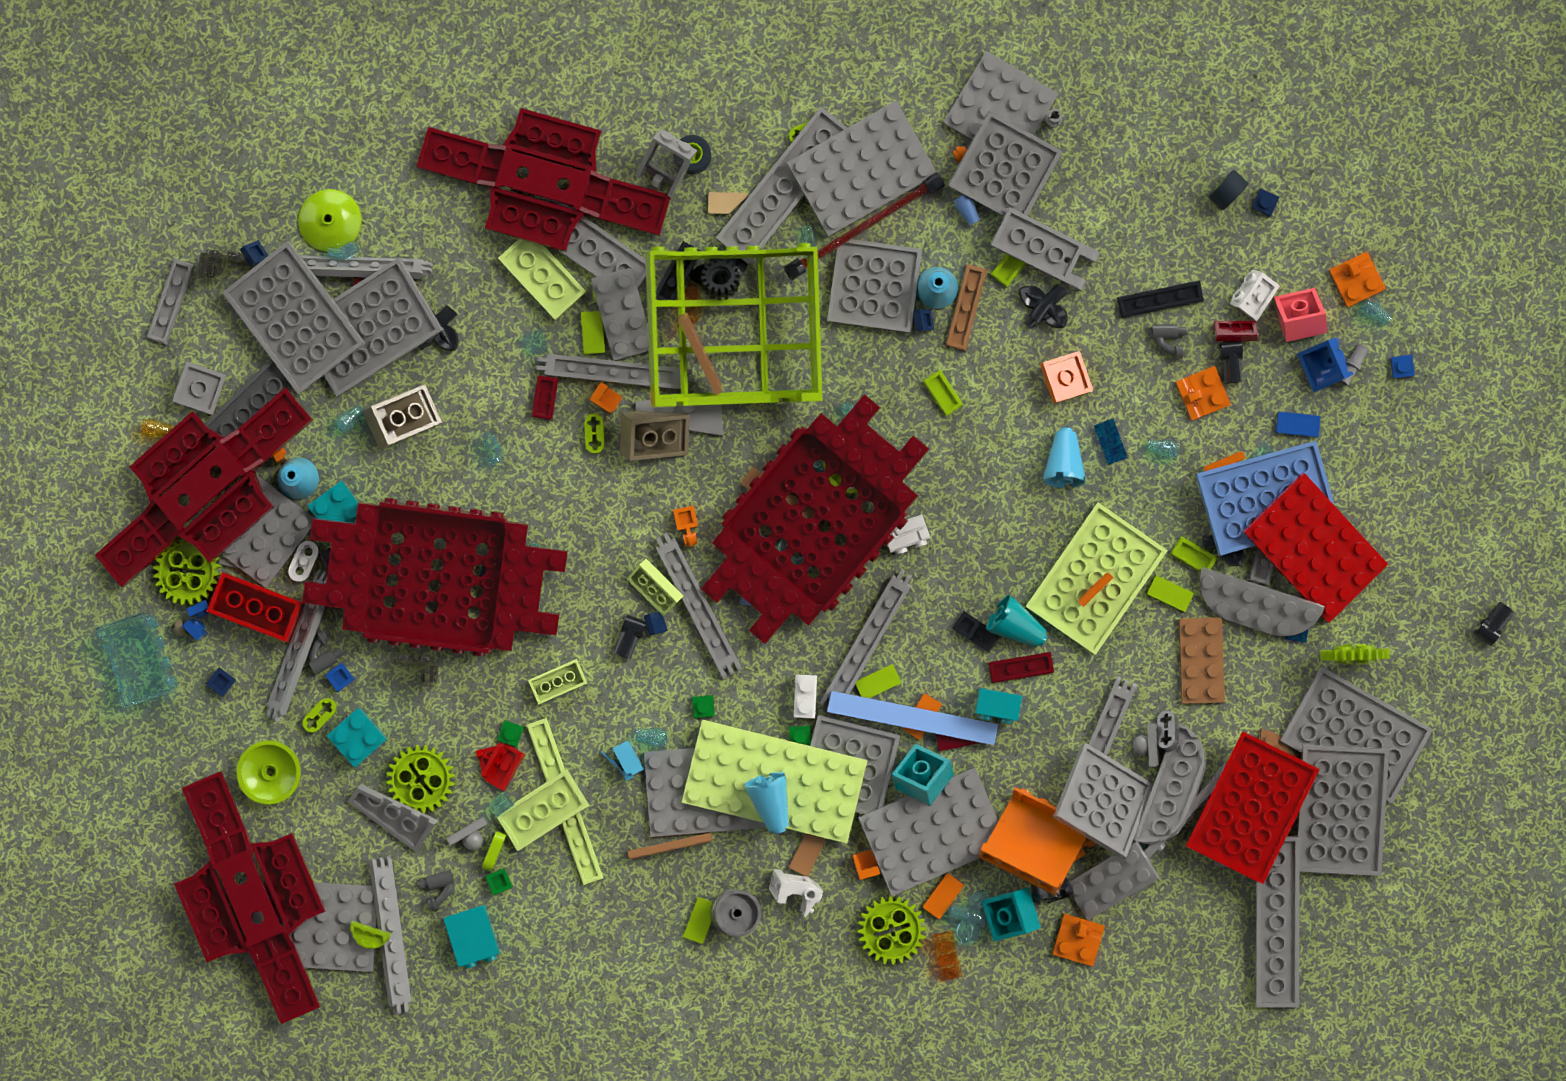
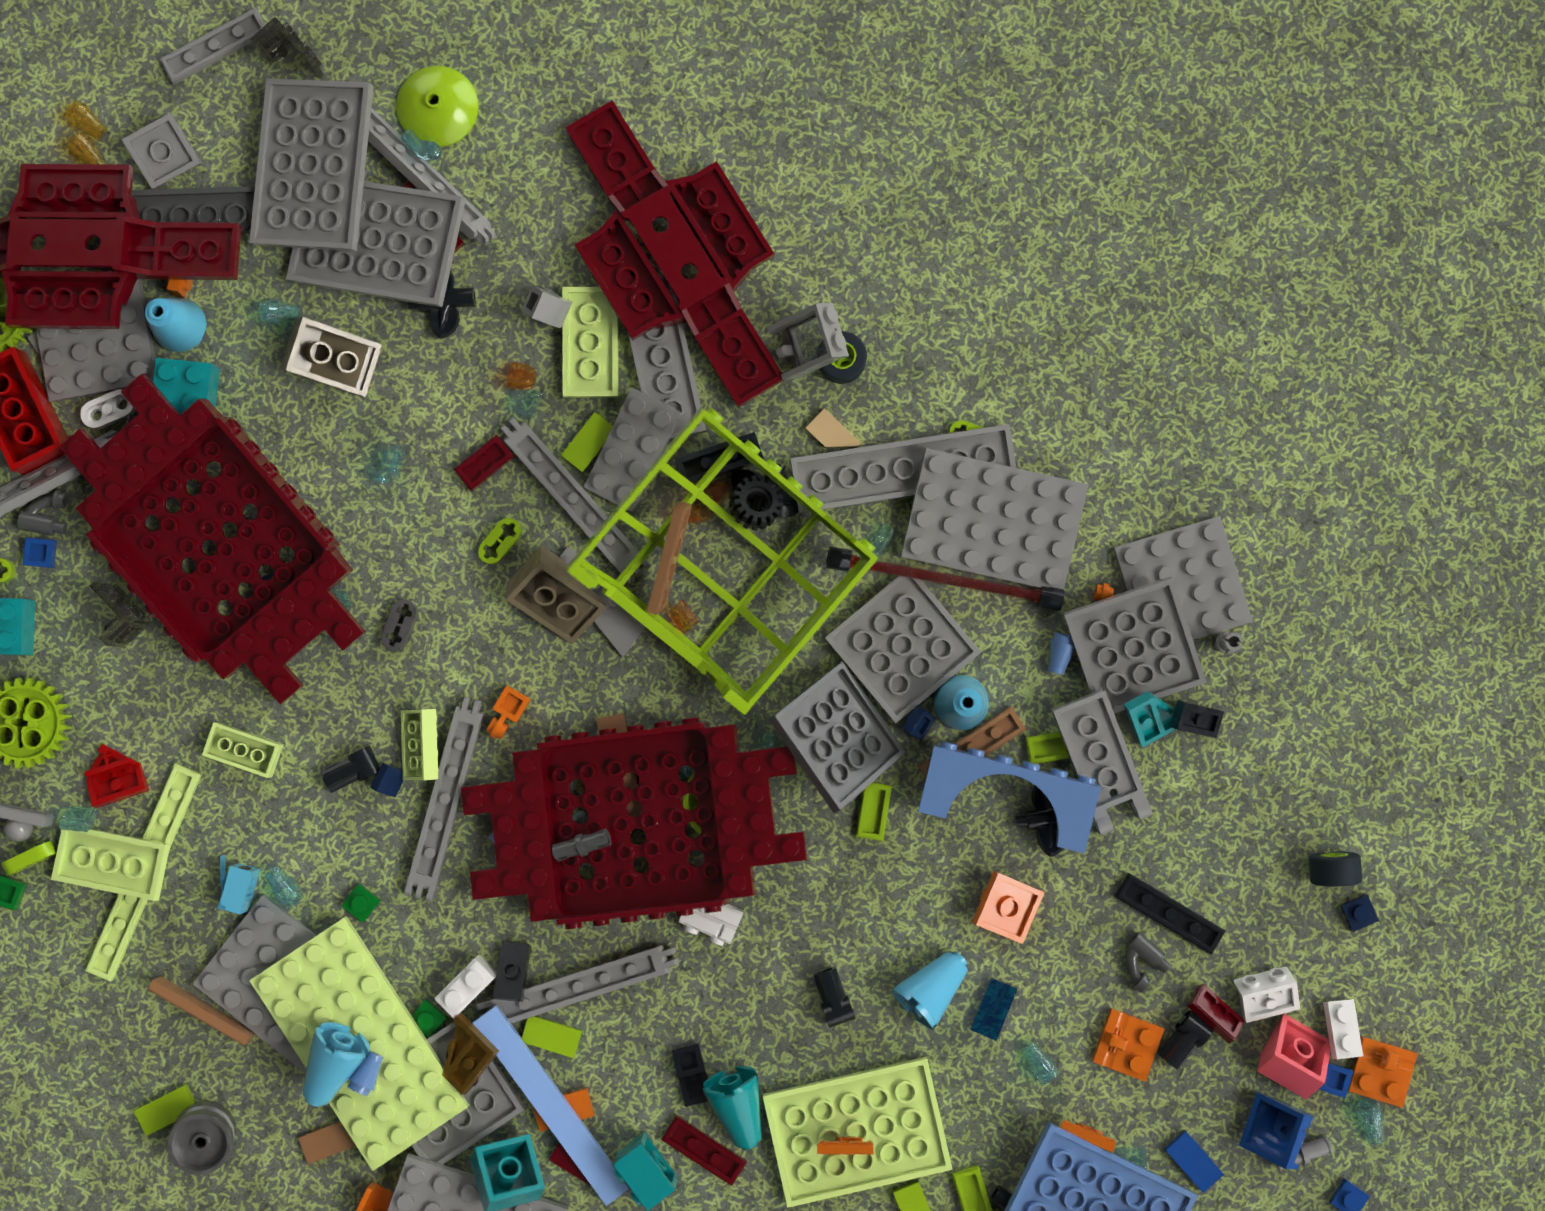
camera: 40 degrees right, 0 degrees up
(135, 411) = (82, 118): none -> clear yellow cone
(254, 253) = (334, 68): dark blue plate -> none
(501, 276) = (546, 306): none -> light grey brick
(510, 733) = (152, 757): green plate -> none
(520, 330) = (521, 376): none -> clear orange tile
(585, 529) = (393, 622): none -> flat silver beam
(605, 398) = (541, 517): orange panel -> none
(737, 381) = (683, 617): none -> clear orange tile
(786, 884) = (281, 1161): white tile -> none
(795, 792) = (365, 1076): none -> medium blue cone
(797, 557) = (581, 845): none -> dark grey pin
(823, 665) = (512, 971): none -> black plate
(841, 730) = (467, 1055): none -> pearl gold wing
(884, 367) = (837, 736): none -> dark grey plate
(1018, 518) = (835, 1002): none -> black piece
(1045, 284) = (1071, 798): none -> medium blue arch
(1051, 198) = (1149, 718): none -> teal wing
(1076, 176) = (1196, 719): none -> black plate
(1313, 275) = (1343, 1029): none -> white plate
(1334, 307) = (1337, 1080): none -> blue plate

